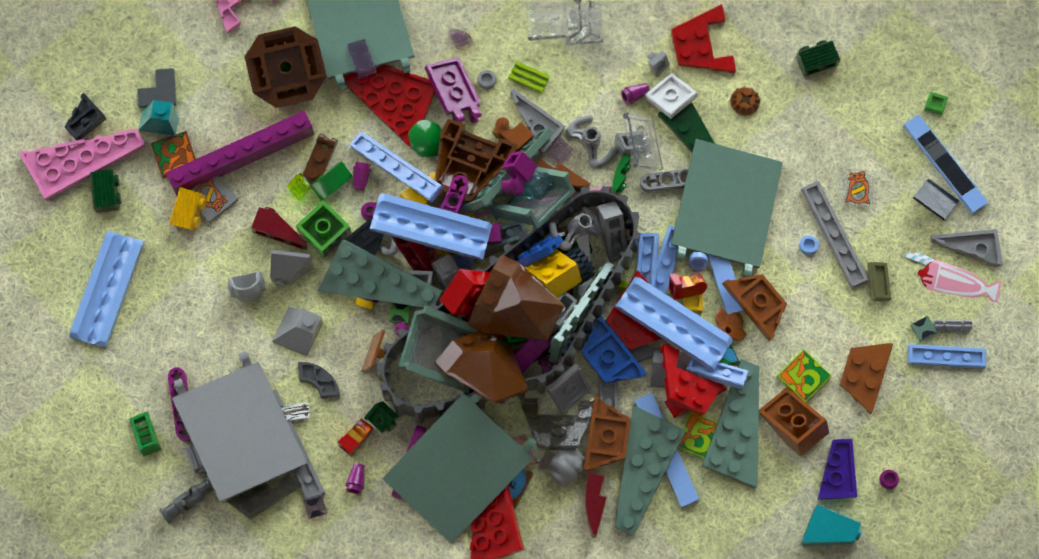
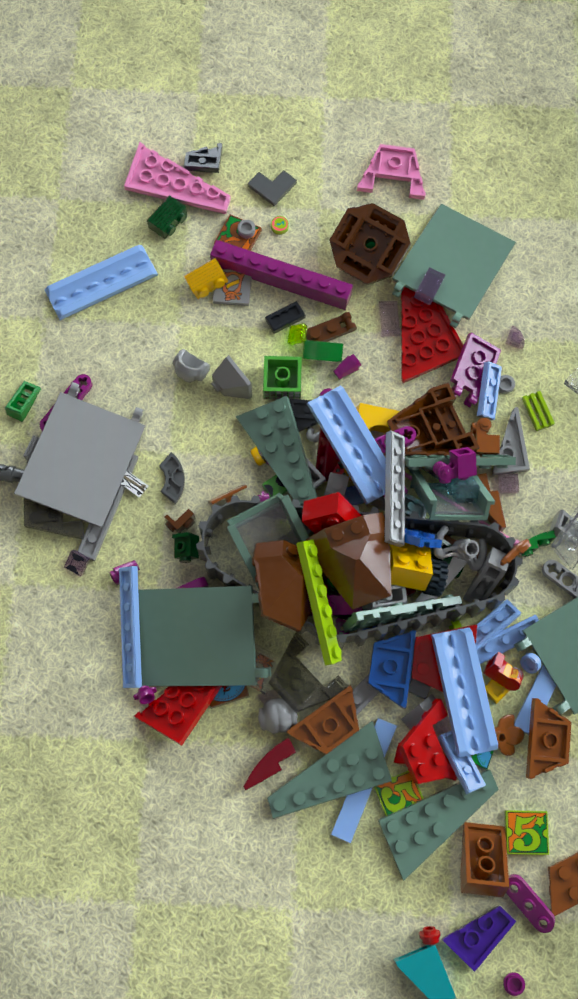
camera: 45 degrees right, 0 degrees up
(159, 118) = (252, 202): teal slope -> none
(176, 142) = (246, 229): none -> light grey tile
(197, 115) = (279, 225): none -> lime tile
(273, 226) = (250, 341): dark red slope -> none
(276, 182) = (285, 317): none -> black plate
(298, 330) = (194, 431): light grey slope -> none
(353, 110) = (389, 318): none -> tile
(355, 437) = (154, 542): red leg -> none
(361, 400) = (186, 521): none -> reddish brown bracket
(396, 167) = (376, 383): light blue tile -> none
(403, 509) = (130, 627): none -> light blue tile
(425, 138) = (418, 382): green dish -> none
(462, 544) = (145, 694): none -> magenta plate
(481, 95) = (489, 390): none -> light blue tile
(492, 230) = (395, 489): none -> light grey tile
(526, 360) = (319, 603): none -> lime plate
(569, 388) = (344, 668): light grey tile -> none
(590, 140) = (538, 497): light grey piece -> none
(616, 189) = (520, 548): none -> dark orange piece
(807, 504) = (429, 935): none -> red plate
(859, 423) = (538, 911): none -> magenta plate

